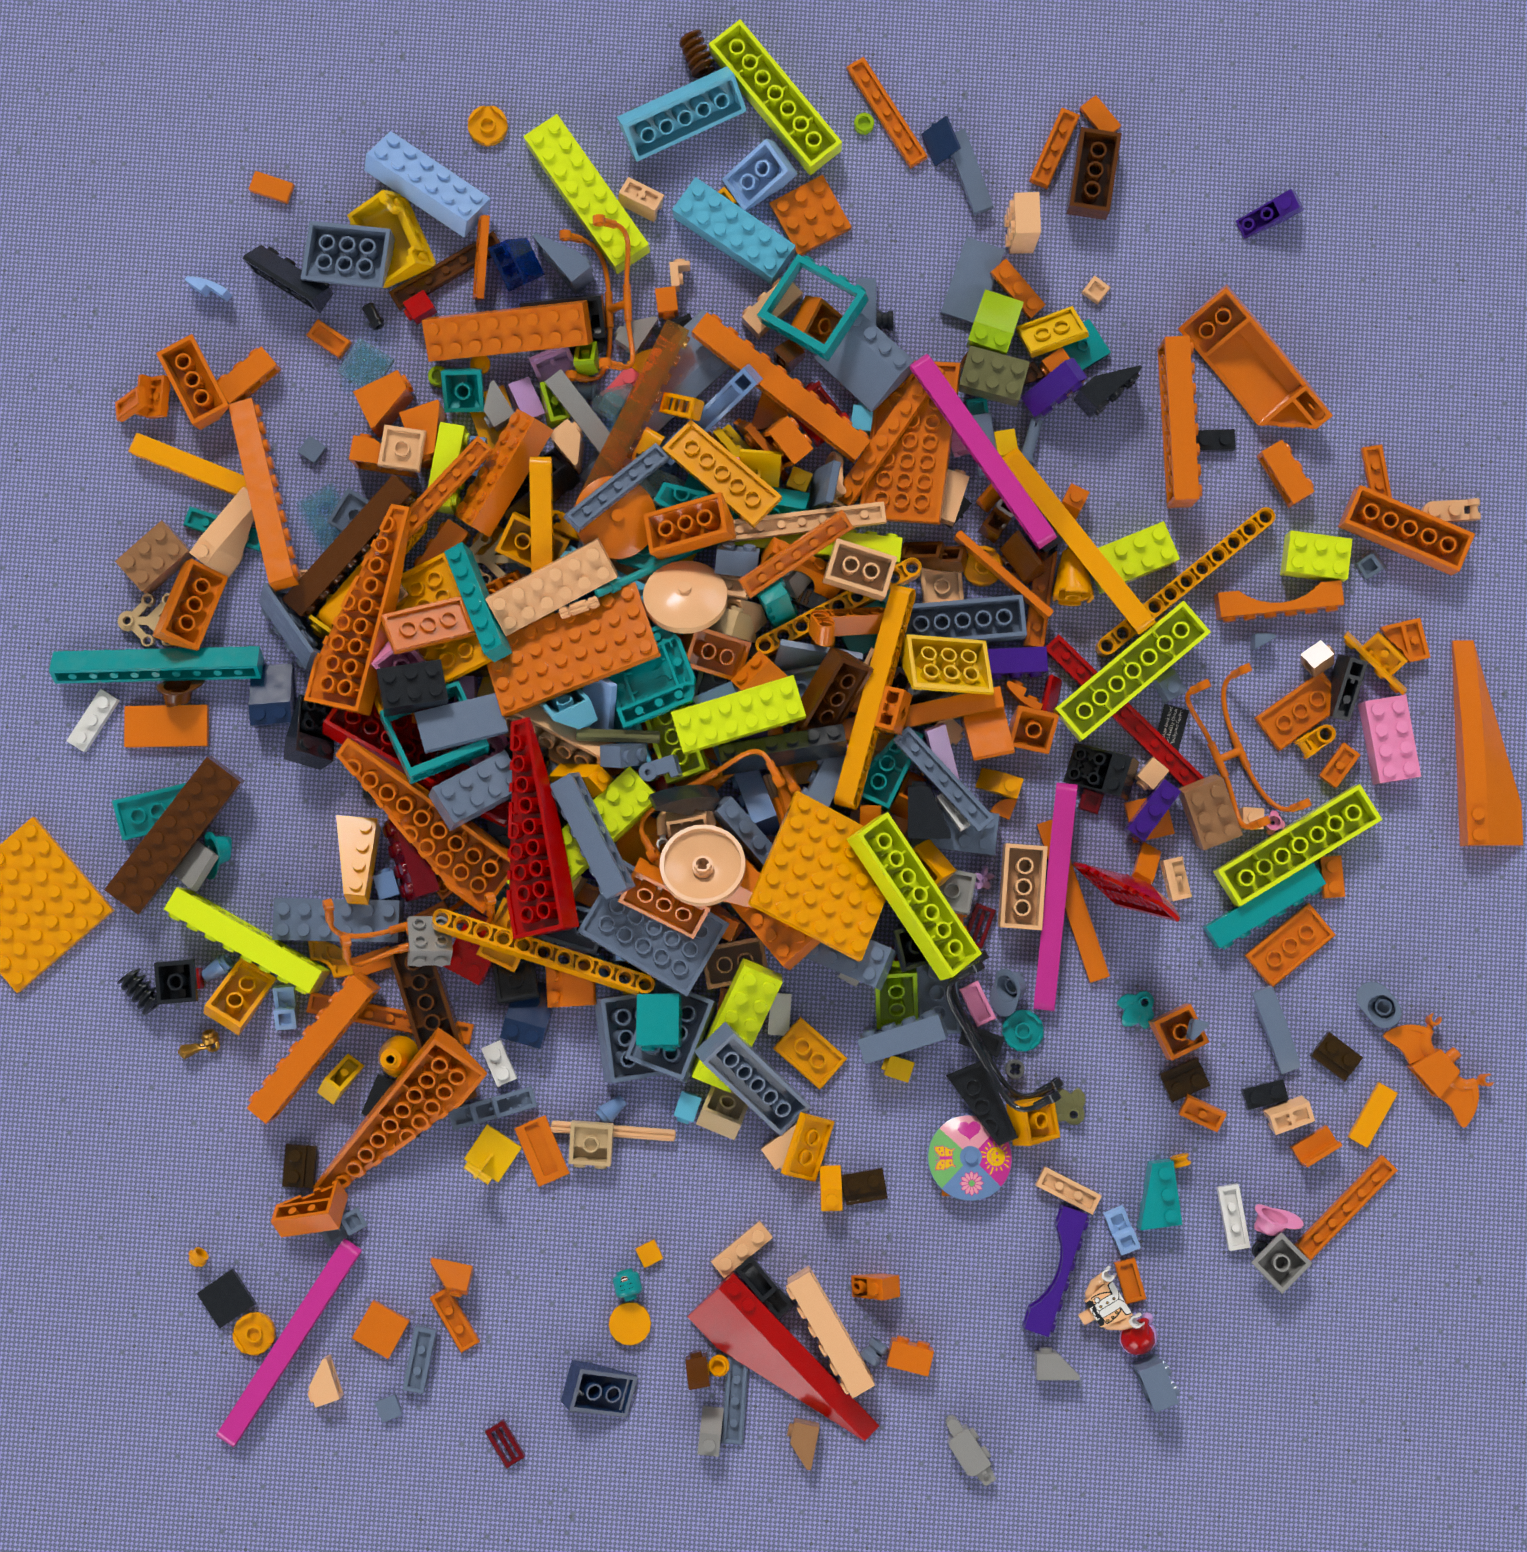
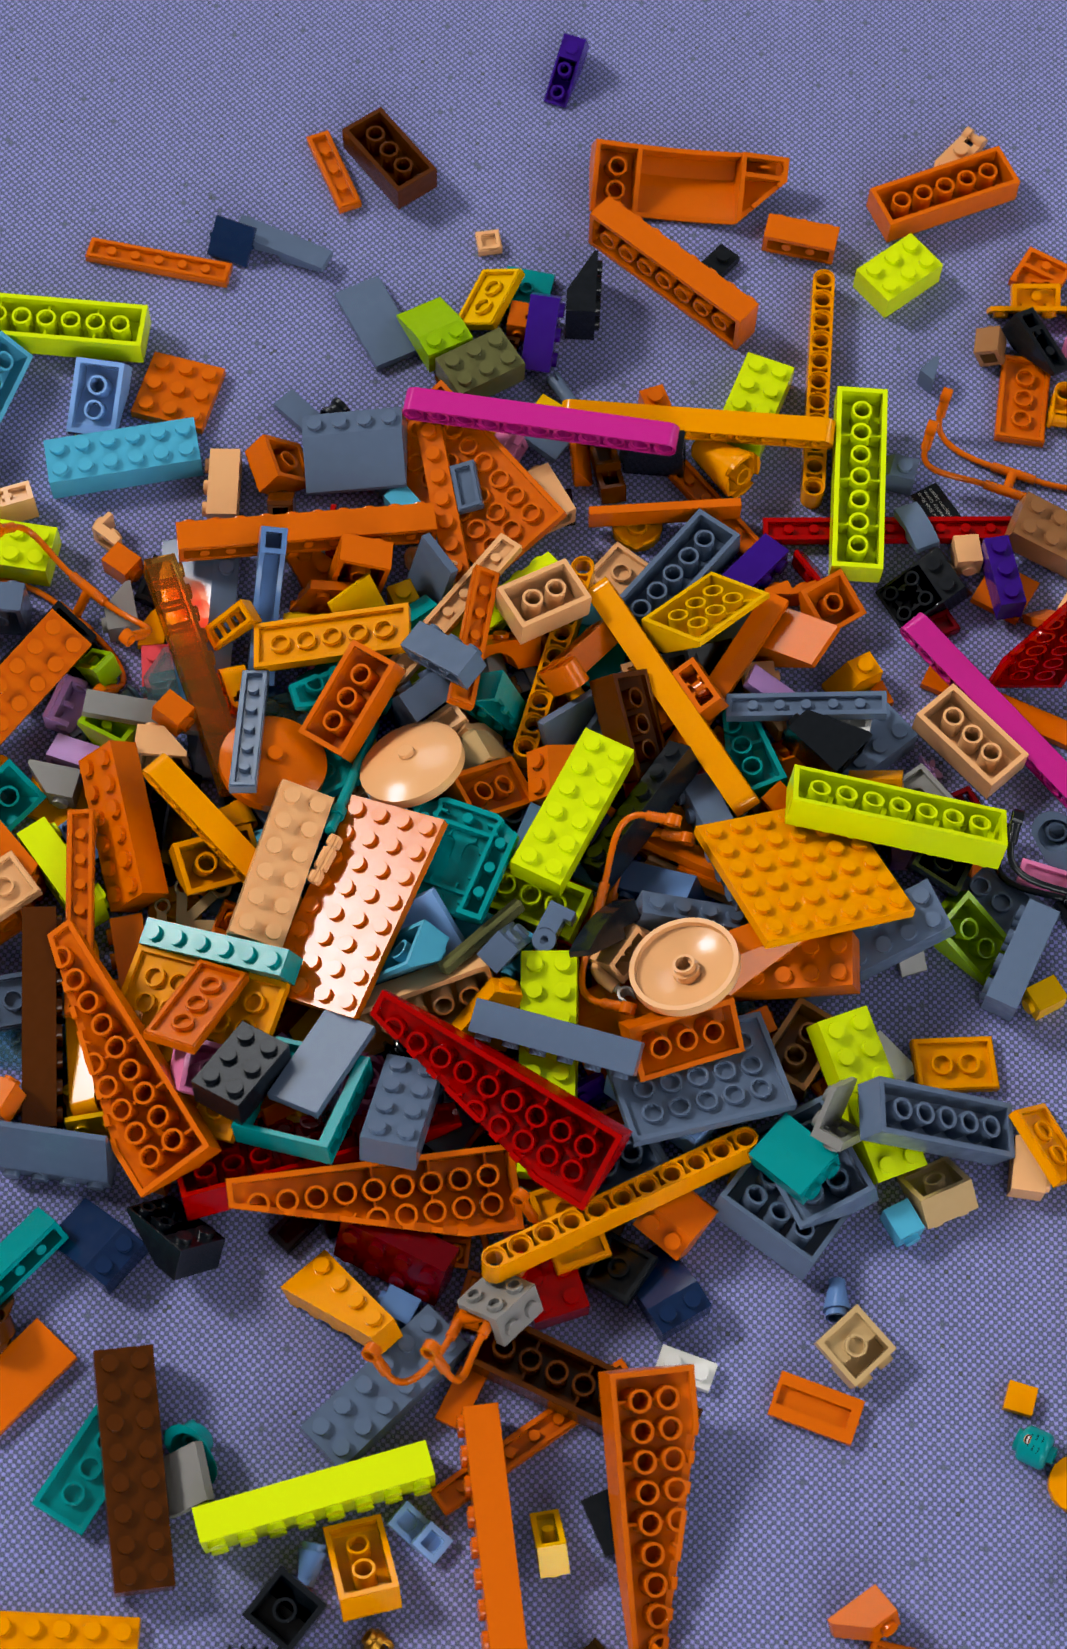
camera: 50 degrees left, 20 degrees down
(331, 956) = (408, 1432): light orange tile -> none
(396, 1054) = (581, 1463): light orange cone -> none
(491, 1155) = (773, 1459): yellow plate -> none
(492, 1108) = (726, 1416): sand blue slope -> none
(593, 432) = (173, 713): none -> orange brick
(624, 1131) = (871, 1308): light nougat axle -> none
(693, 1029) = (828, 1123): none -> light grey bracket
(762, 551) = (444, 654): none -> sand blue brick
(822, 350) = (275, 477): teal window -> none
(863, 123) = (148, 286): lime tile -> none
(903, 447) = (466, 487): none -> sand blue tile
(936, 555) = (599, 546): reddish brown slope -> none
(1017, 288) = (417, 292): orange plate -> none
(1021, 558) = (665, 480): reddish brown slope -> none
(1023, 222) = (374, 234): light nougat brick -> none
(1099, 115) = (340, 117): orange tile -> none
(1138, 730) = (917, 527): none -> sand blue slope
(1238, 605) = (880, 364): orange arch -> none
(1370, 565) = (945, 246): sand blue slope -> none
(1376, 469) = (860, 174): orange tile -> none

